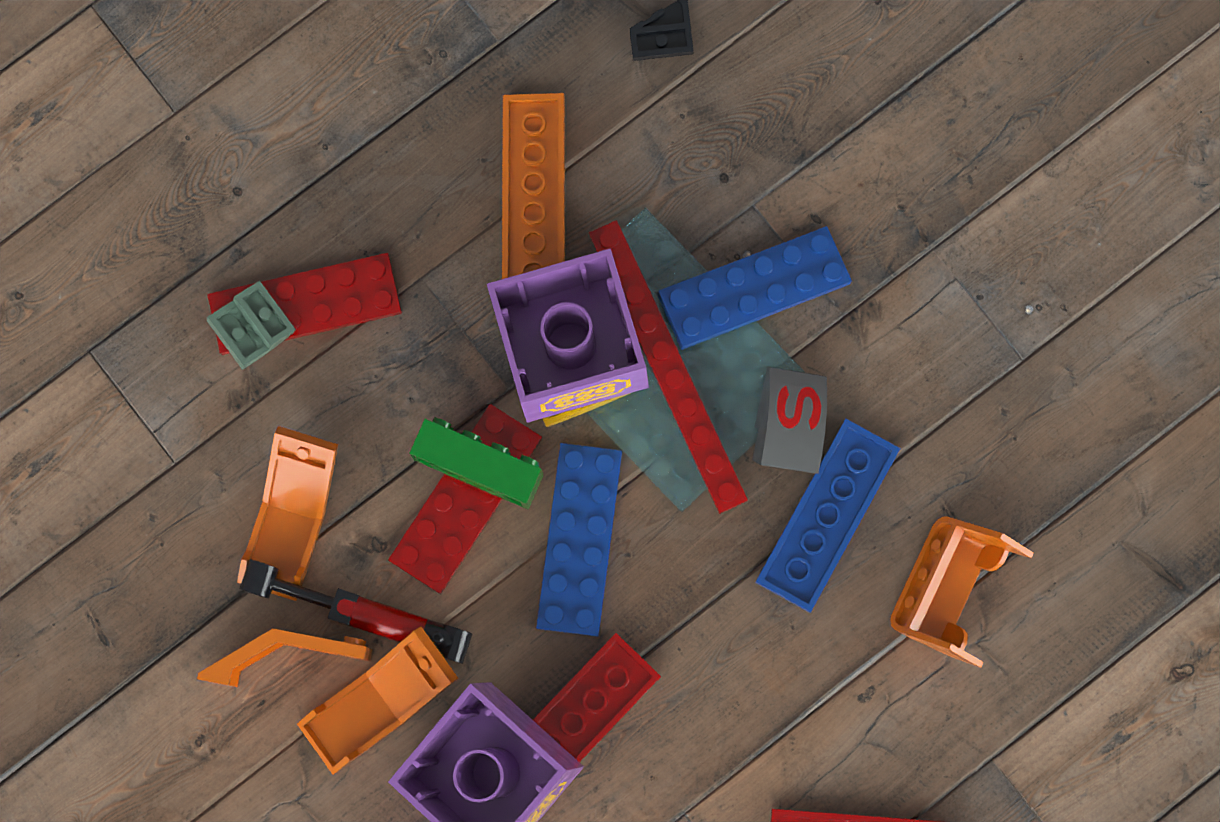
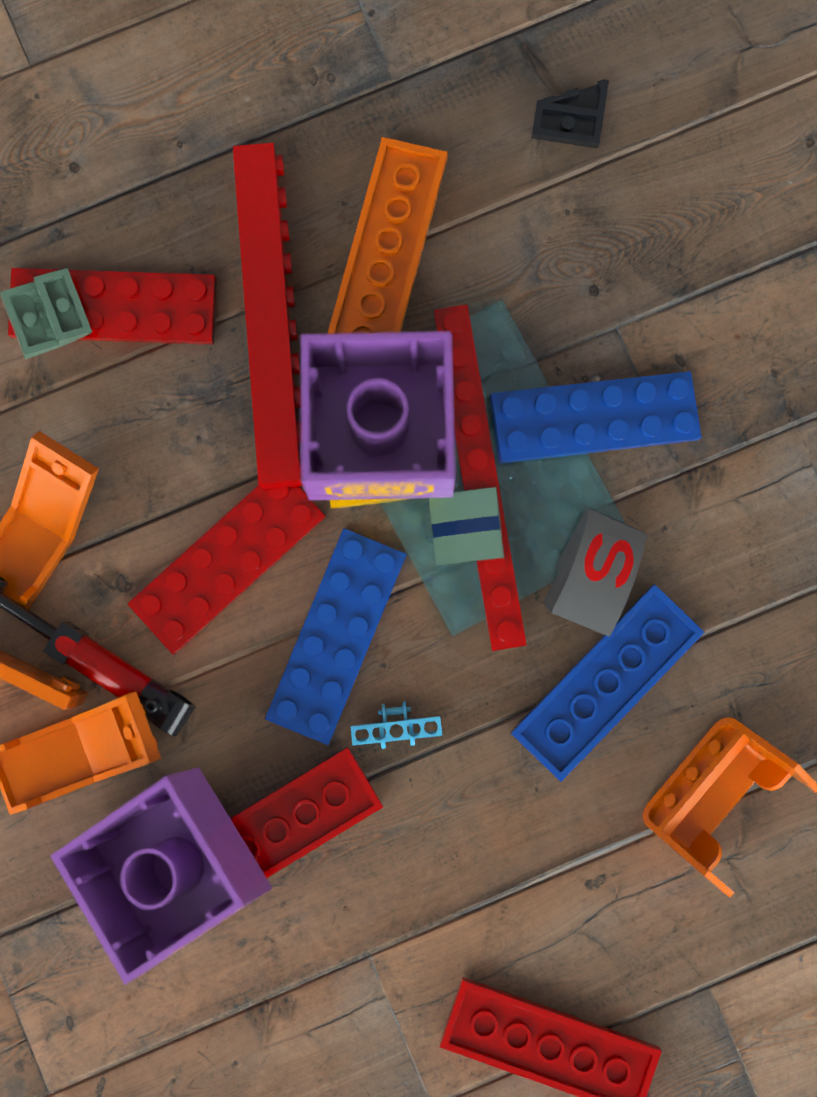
camera: 15 degrees right, 5 degrees up
(446, 277) = (268, 314): none -> red brick
(477, 464) = (242, 529): green brick -> none
(656, 588) = (387, 725): none -> medium azure piece
(667, 411) = (467, 527): none -> sand green slope

